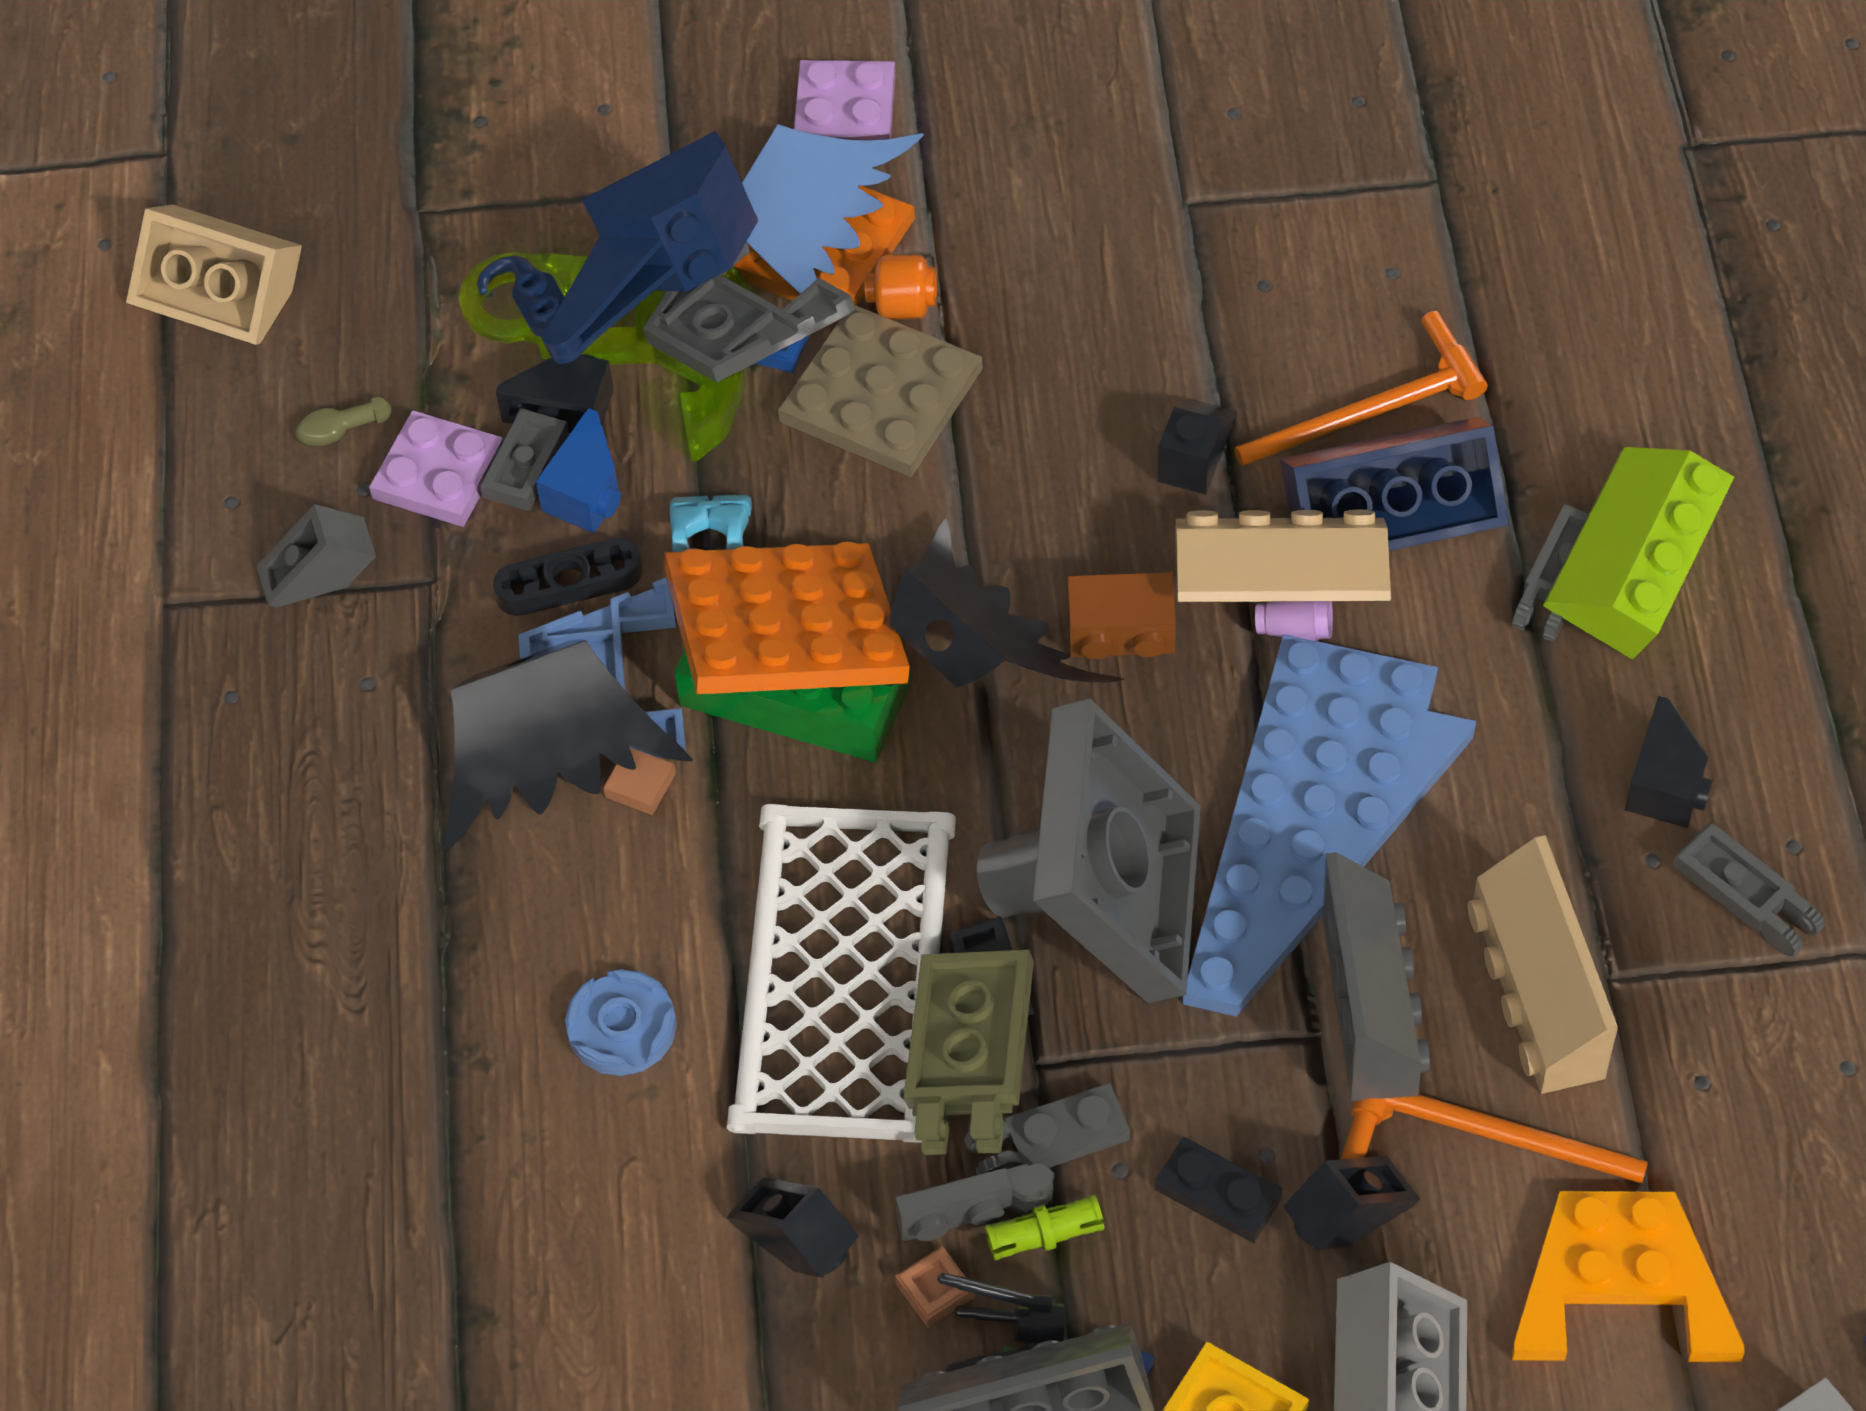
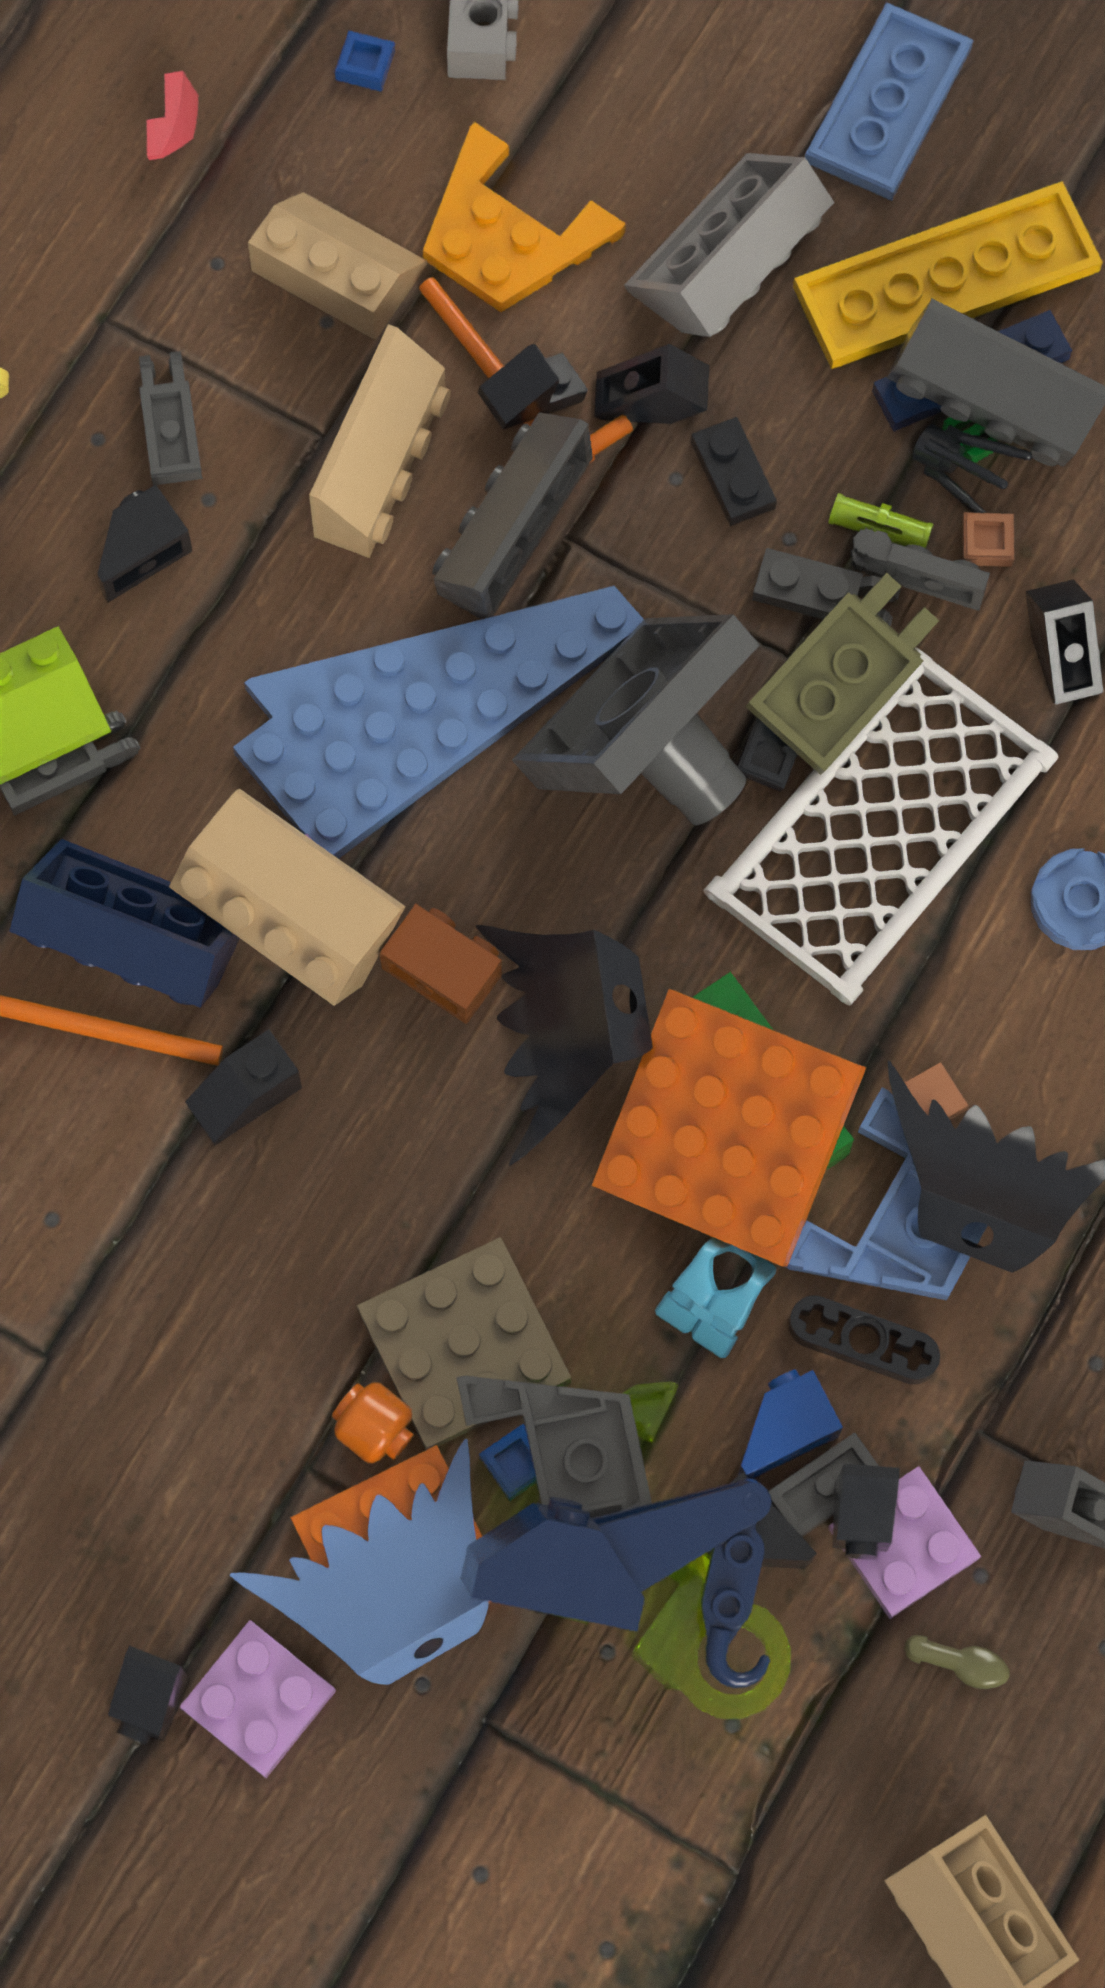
camera: 150 degrees left, 15 degrees up
(479, 430) = (864, 1510): none -> black slope
(921, 49) = (147, 1696): none -> black slope
(1456, 1123) = (531, 386): none -> black slope
(1742, 1124) = (334, 263): none -> tan slope

